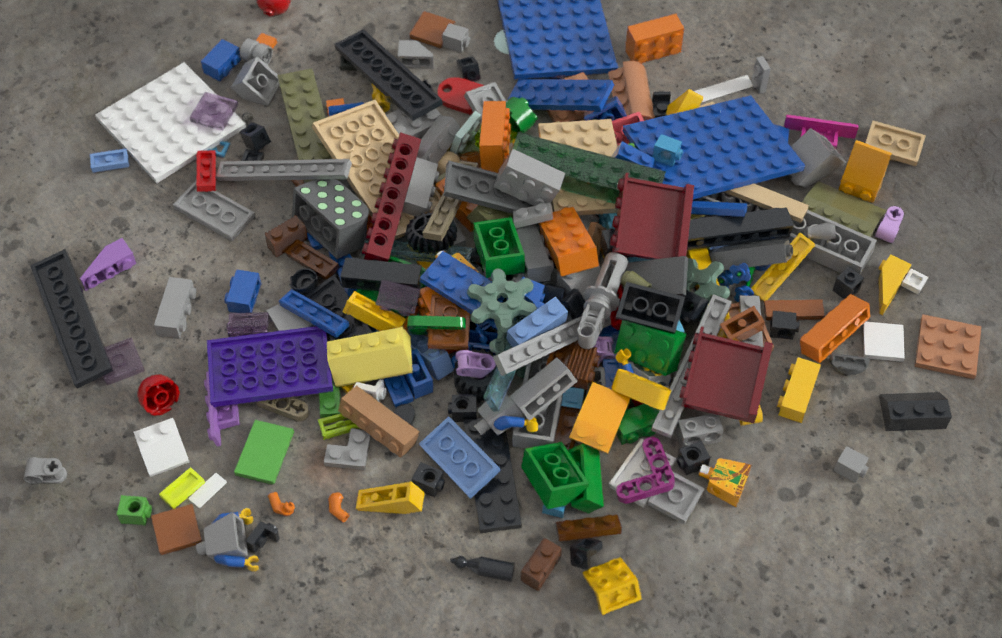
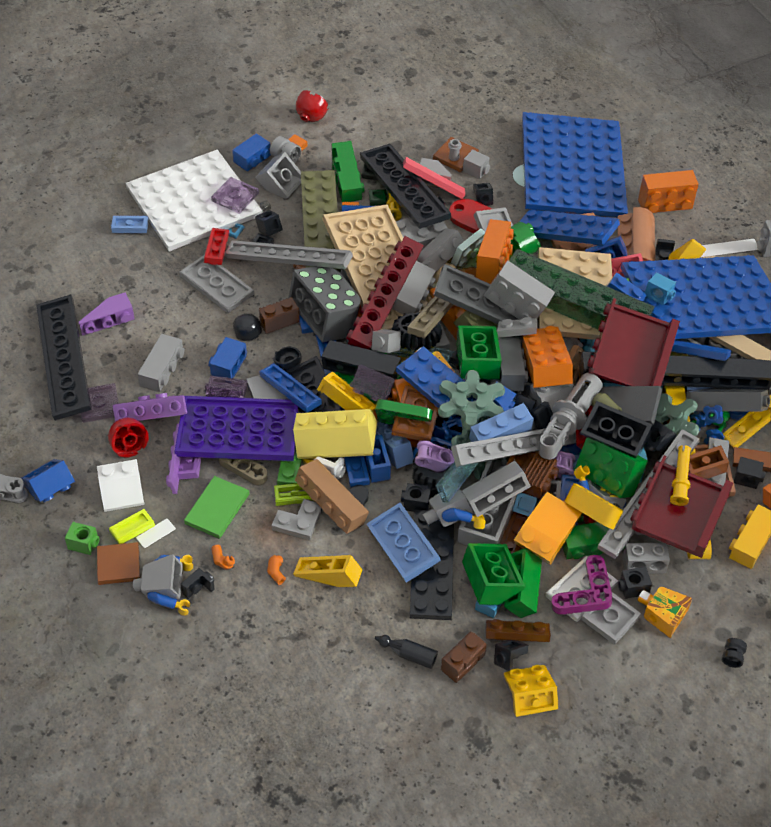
camera: 10 degrees right, 5 degrees down
(85, 454) = (48, 480): none -> blue slope
(175, 359) = (151, 408): none -> medium lavender bracket
(255, 254) = (247, 327): none -> black hair
(312, 259) = (298, 338): reddish brown plate -> none
(324, 67) = (346, 172): none -> green wedge
(361, 89) = (377, 197): none -> dark green tile
(403, 249) = (386, 340): none -> light grey brick
(416, 61) = (434, 178): none -> coral tile
(427, 472) = (368, 551): black brick -> none
(431, 23) = (454, 146): none -> light grey pin
(722, 352) = (681, 483): none -> yellow pin
(799, 514) = (734, 652): none -> black wheel

